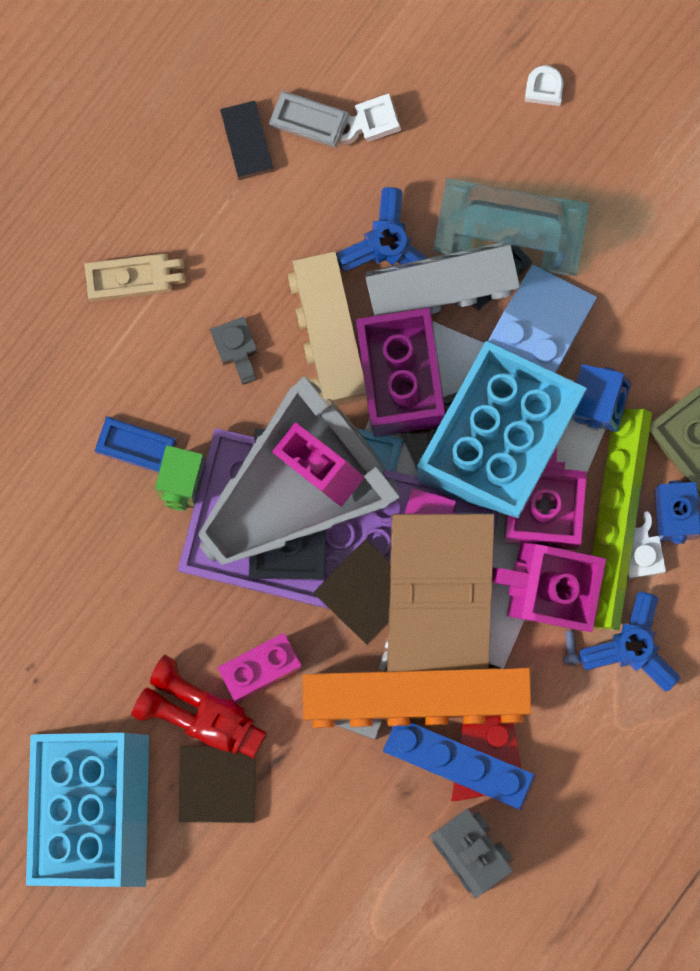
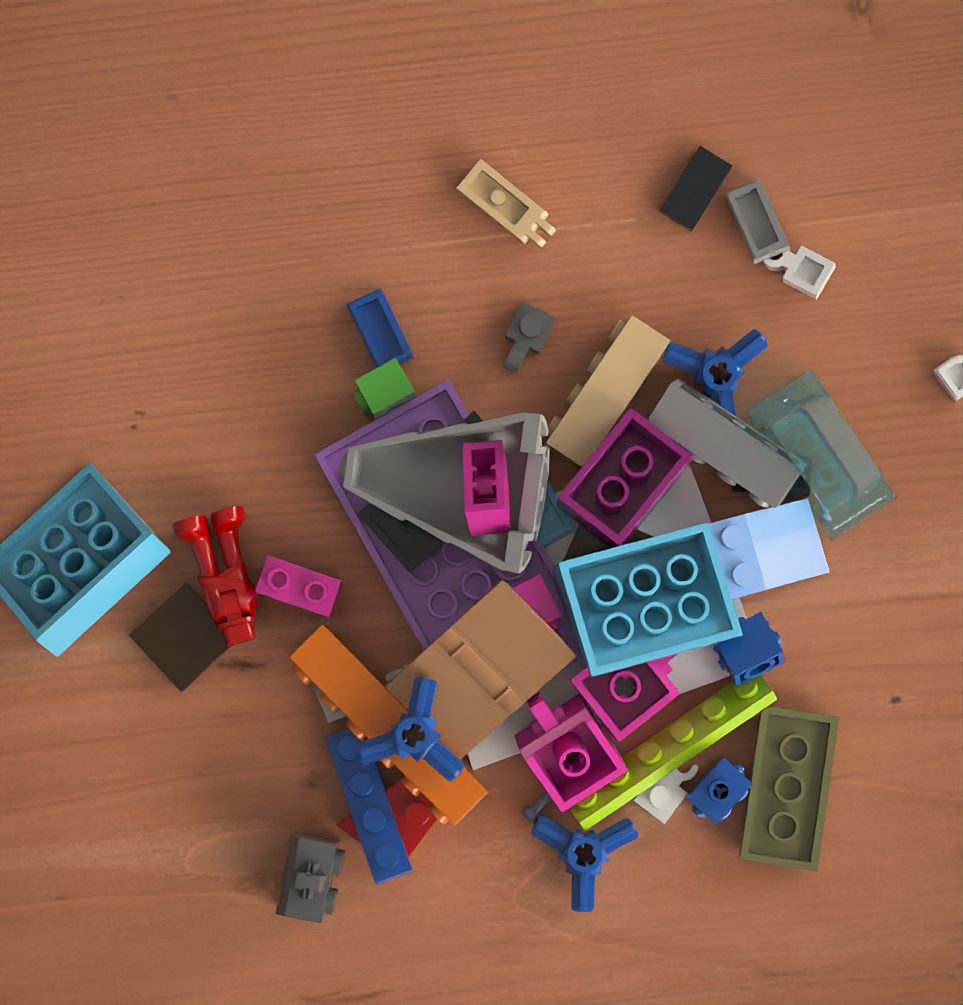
camera: 45 degrees right, 5 degrees up
(360, 592) = (425, 608): dark brown tile -> none
(463, 679) = (395, 743): none -> blue bush

